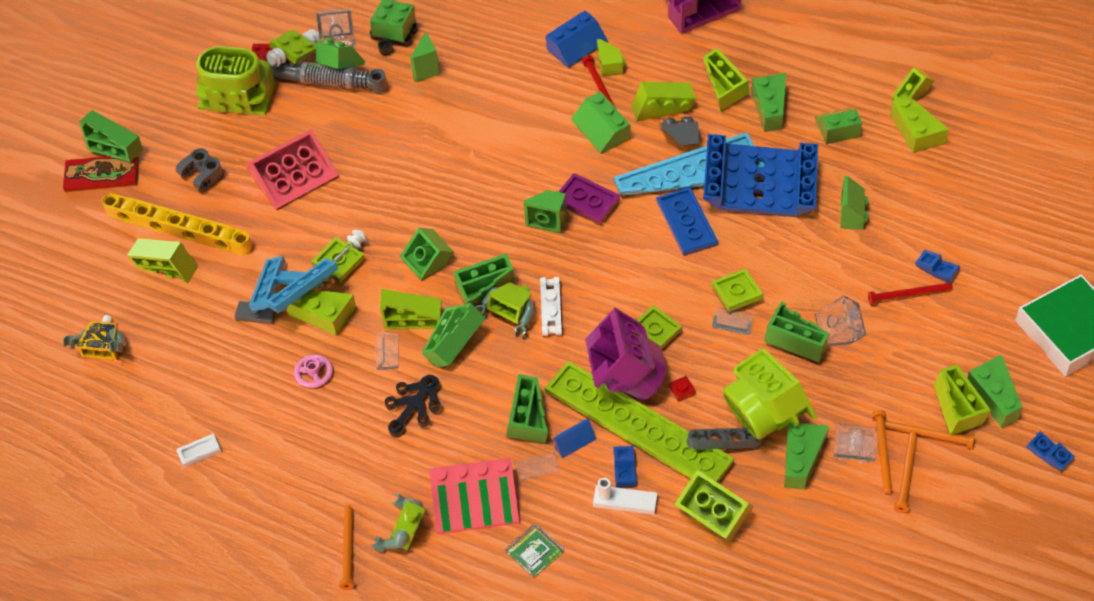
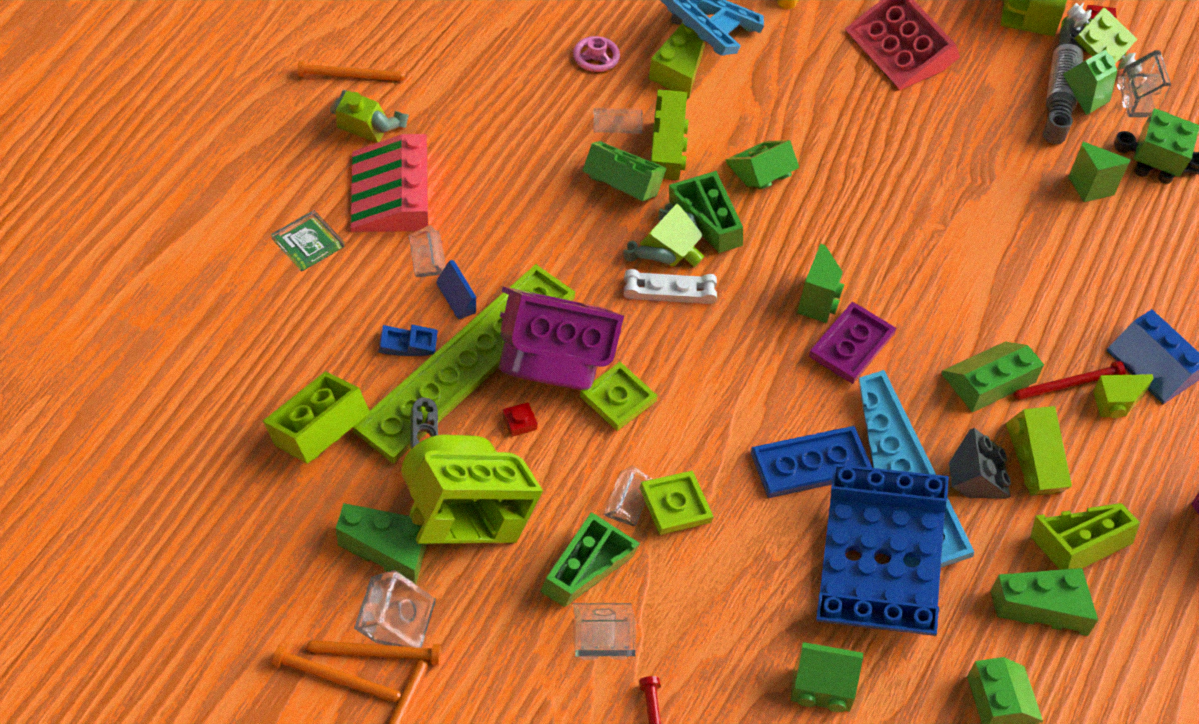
camera: 85 degrees right, 0 degrees up
(343, 254) = (760, 79): lime plate -> none
(413, 402) = (558, 154): black plant -> none
(527, 413) = (501, 239): bright green wedge -> none
(623, 499) = (359, 334): white piece -> none

